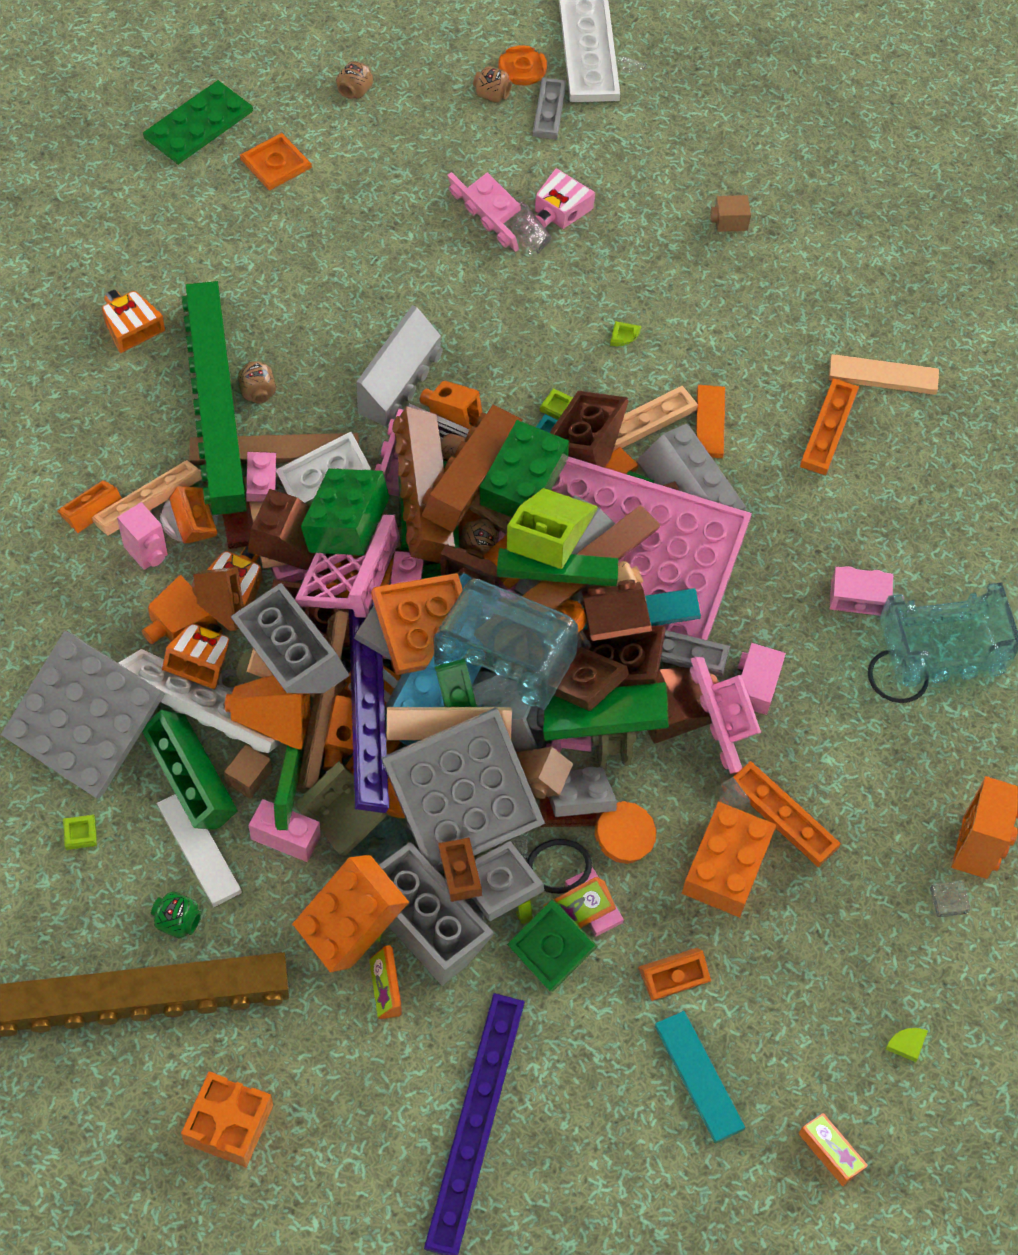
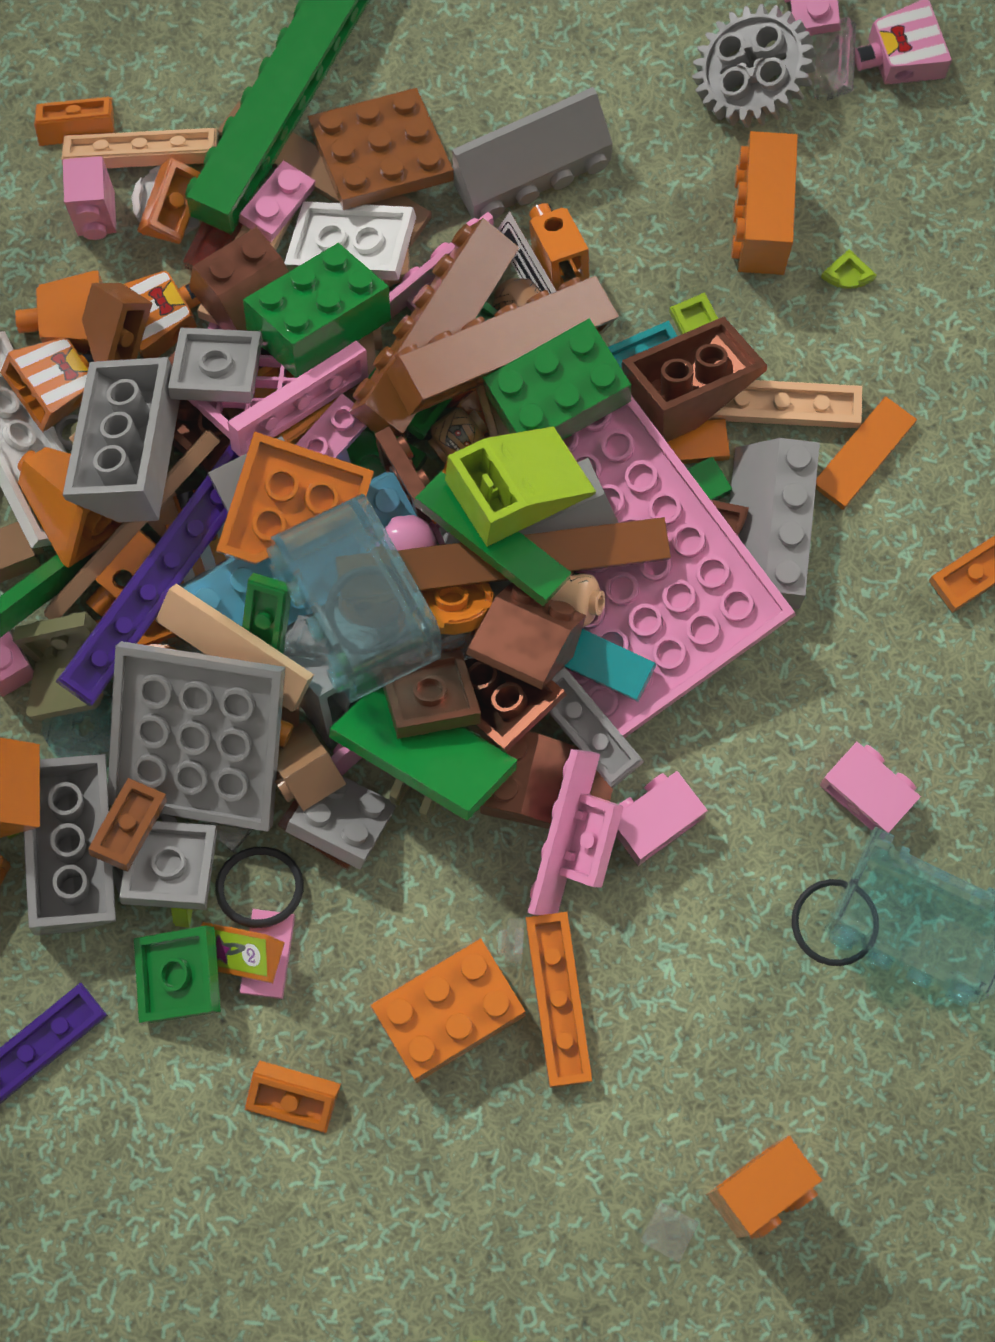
camera: 40 degrees right, 15 degrees up
(256, 381) = (362, 74): medium nougat head -> none
(301, 414) = (380, 148): none -> dark orange plate
(311, 573) = (215, 365): none -> light grey plate
(501, 267) = (754, 65): none -> light grey gear
(554, 318) = (765, 203): none -> orange brick
(625, 833) = (361, 901): orange tile -> none
(699, 1077) = (227, 1231): teal tile -> none

